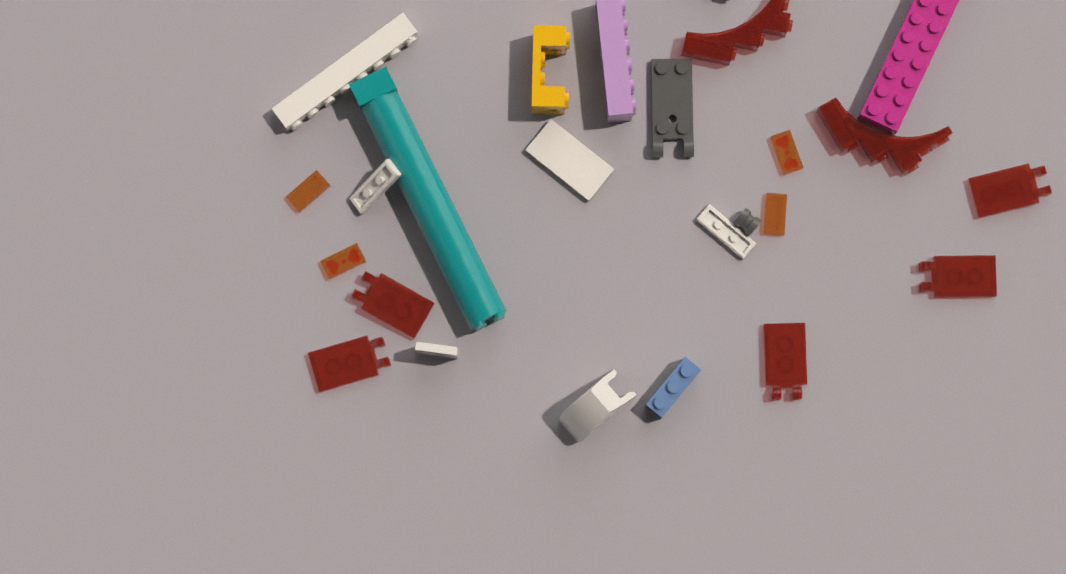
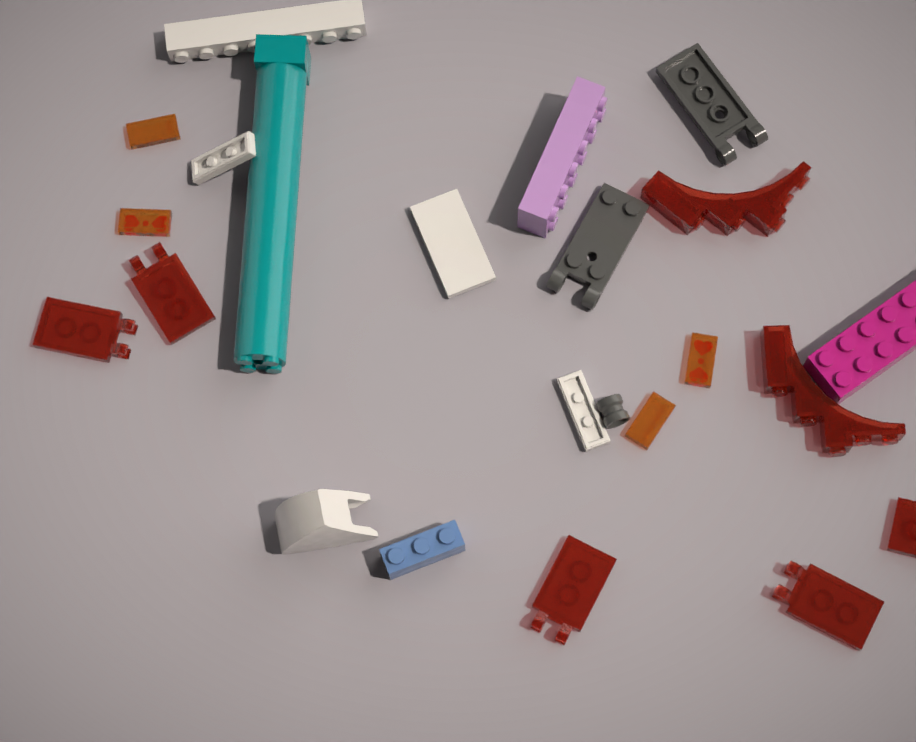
camera: 30 degrees right, 10 degrees down
(437, 350) = (183, 365): white tile -> none
(548, 41) = (496, 103): yellow plate -> none

